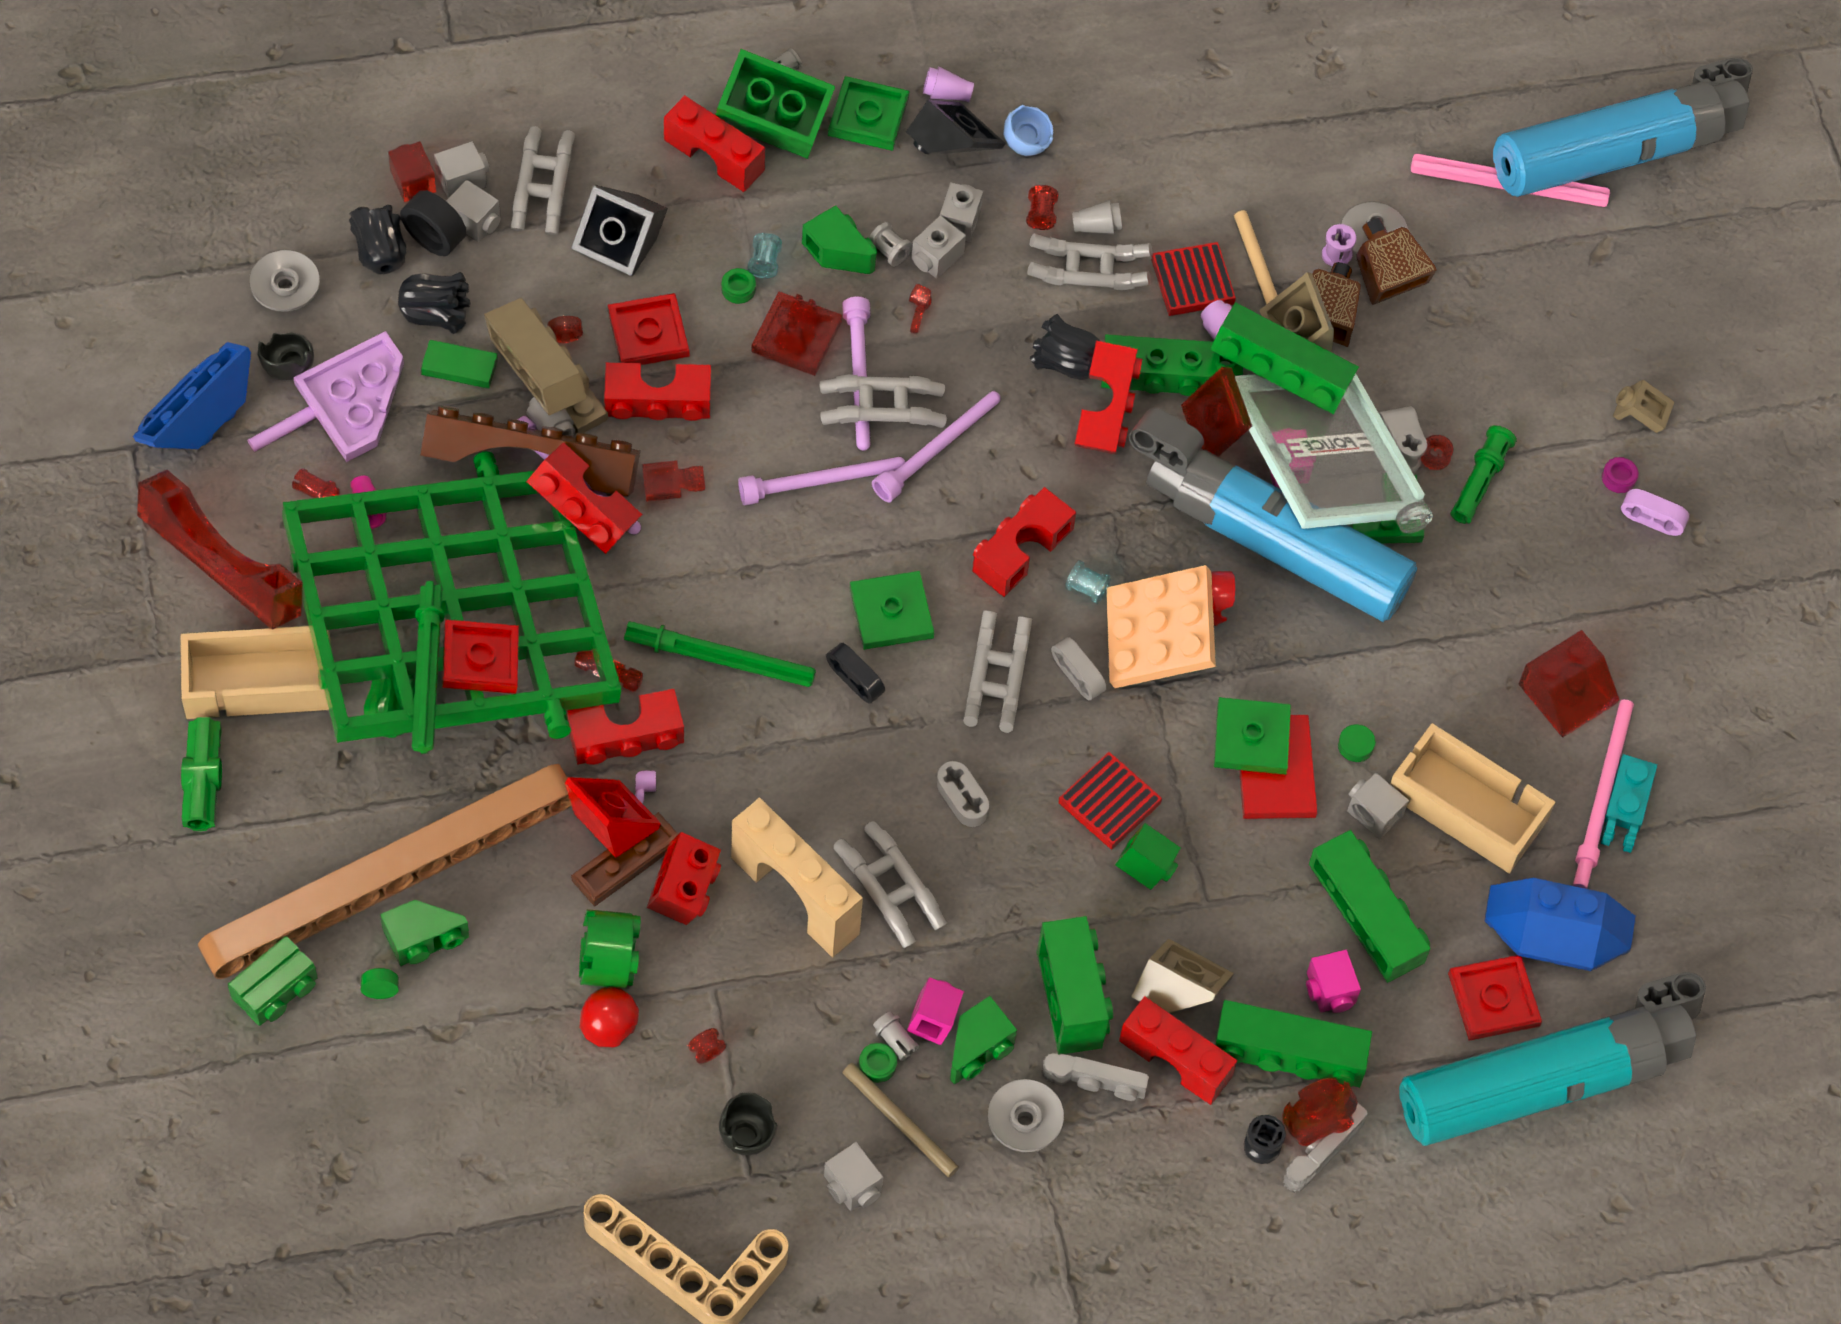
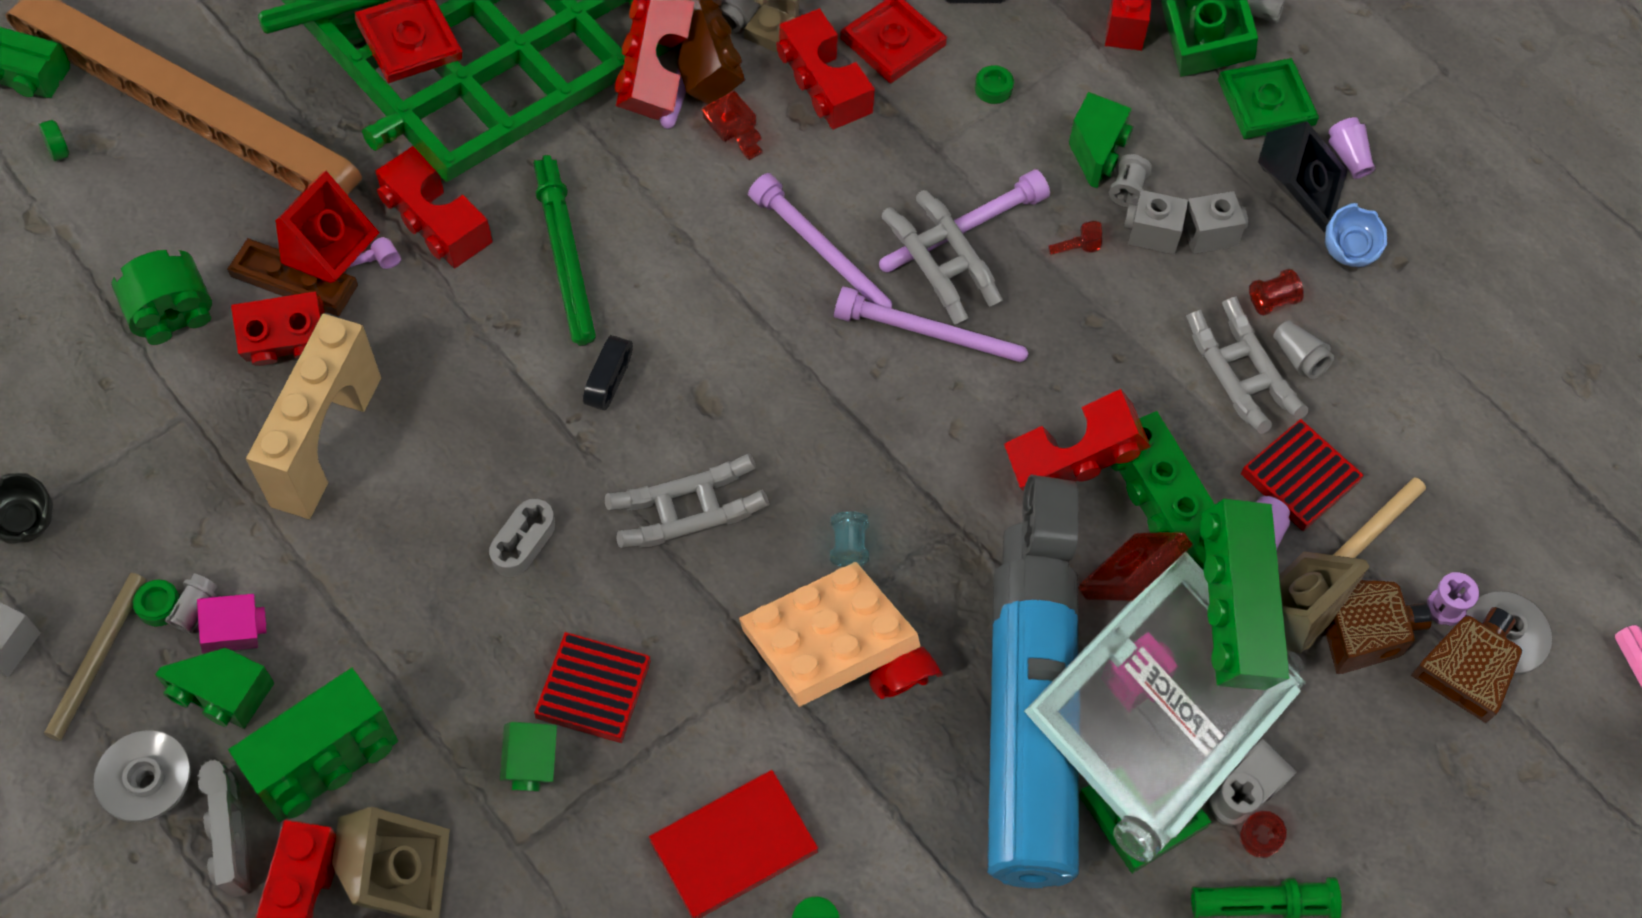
camera: 65 degrees right, 0 degrees up
(422, 929) = (122, 143): slope -> none
(608, 1017) = (102, 338): red hair -> none
(629, 677) = (496, 178): clear red axle -> none
(707, 1045) = (102, 434): clear red bush -> none
(765, 254) = (1039, 86): clear light blue bush -> none
(796, 333) = (971, 151): clear red plate -> none
(888, 902) = (380, 538): light grey piece -> none
(891, 610) = (707, 375): green plate -> none
(1039, 520) = (828, 440): red arch -> none
(1064, 349) = (1115, 371): black piece -> none
(1078, 668) = (735, 578): light grey beam -> none
(1252, 735) = (749, 796): green plate -> none

